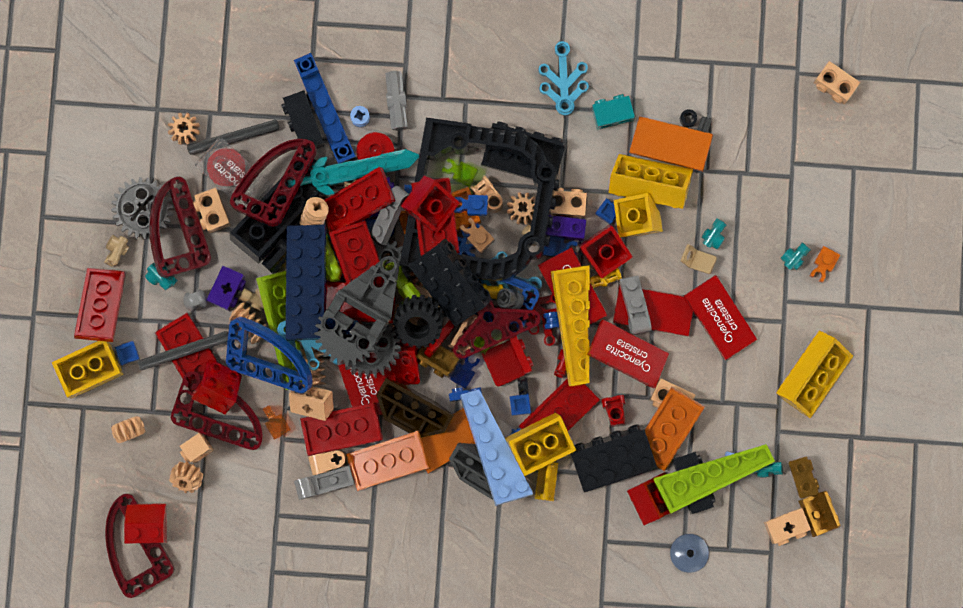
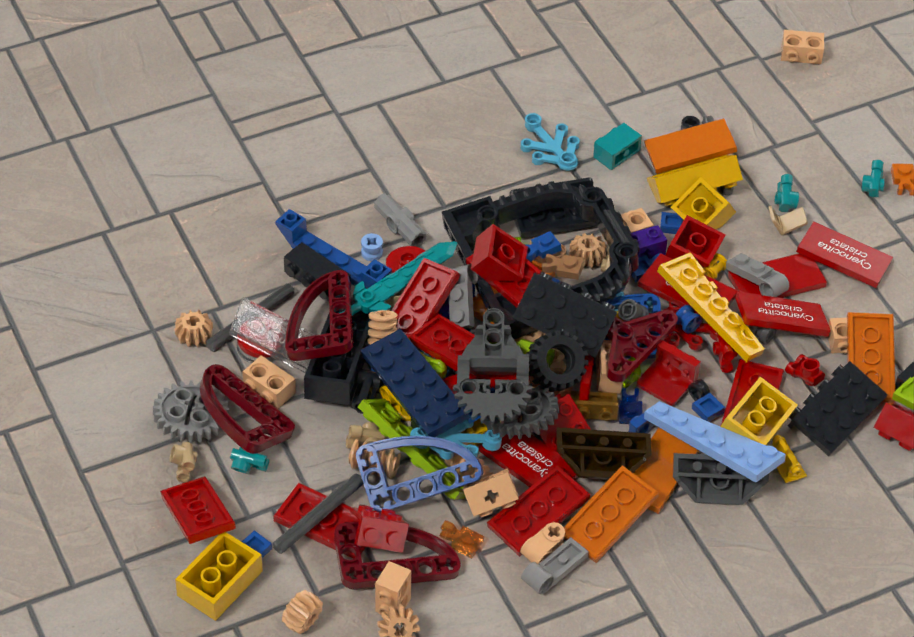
camera: 30 degrees left, 35 degrees down
(195, 300) = (301, 465): light grey piece -> none
(217, 294) = (328, 441): dark purple brick -> none

